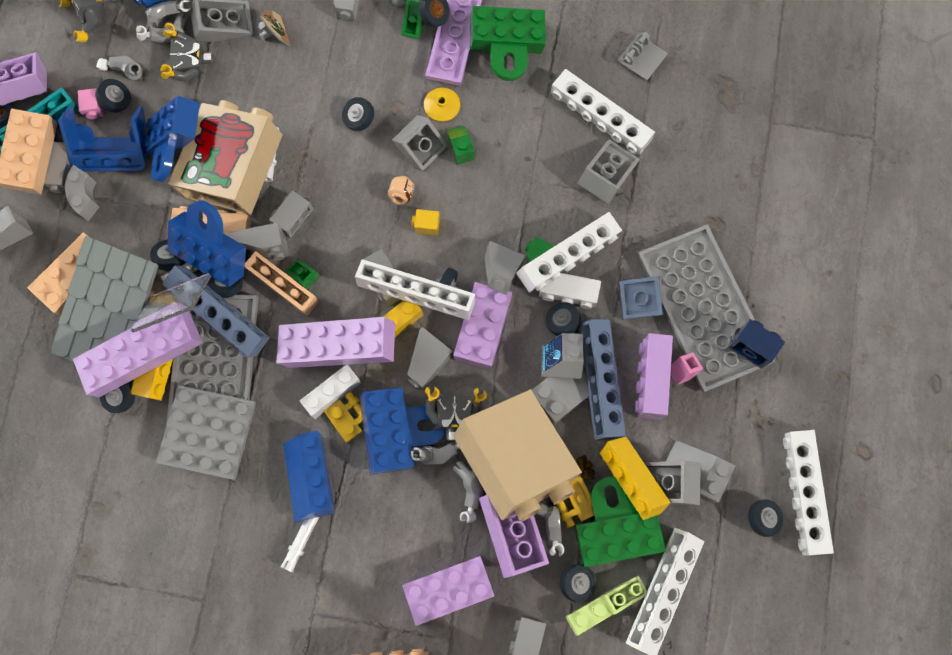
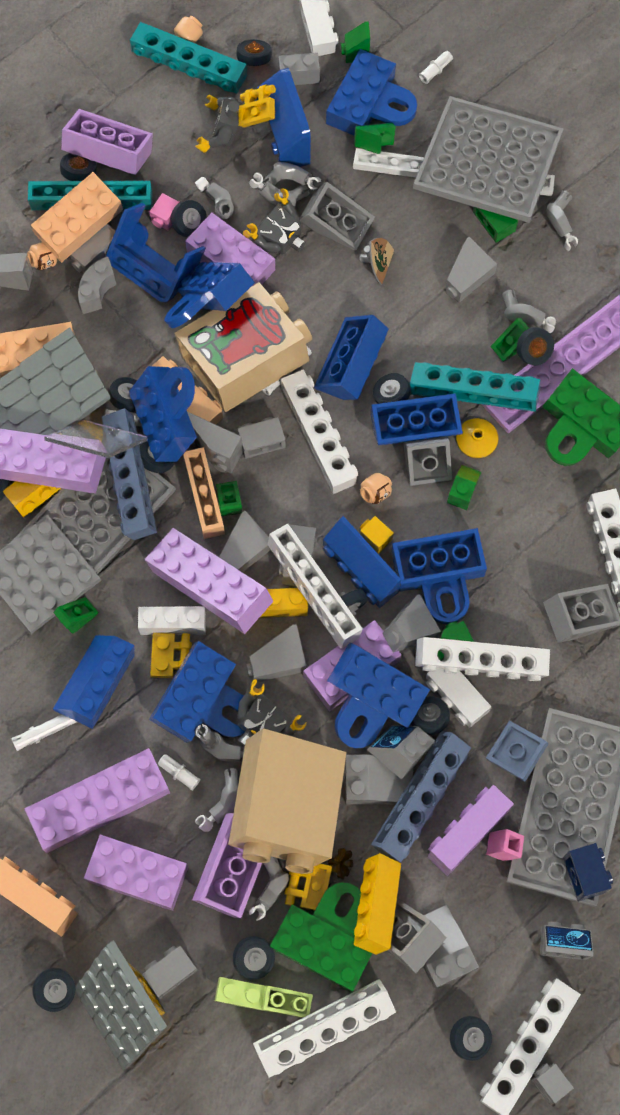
camera: 35 degrees right, 5 degrees down
(22, 201) = (41, 257): none -> light nougat head
(156, 93) = (229, 246): none -> lavender brick
(257, 440) = (76, 614): none -> green slope
(289, 154) = (336, 479): none -> white brick
(310, 110) = (352, 357): none -> blue slope
(340, 297) = (245, 544): none -> light grey slope
(379, 562) = (97, 801): none -> lavender brick
(391, 121) = (416, 419): none -> blue slope
(421, 494) = (178, 771): none -> white axle
(423, 68) = (483, 393): none -> teal brick
(432, 249) = (361, 563): none -> blue slope
(489, 211) = (439, 567): none -> blue brick
(517, 333) = (374, 692): none -> blue brick
(776, 402) = (566, 942): none -> slope
(845, 505) = (551, 1082): none -> light grey brick

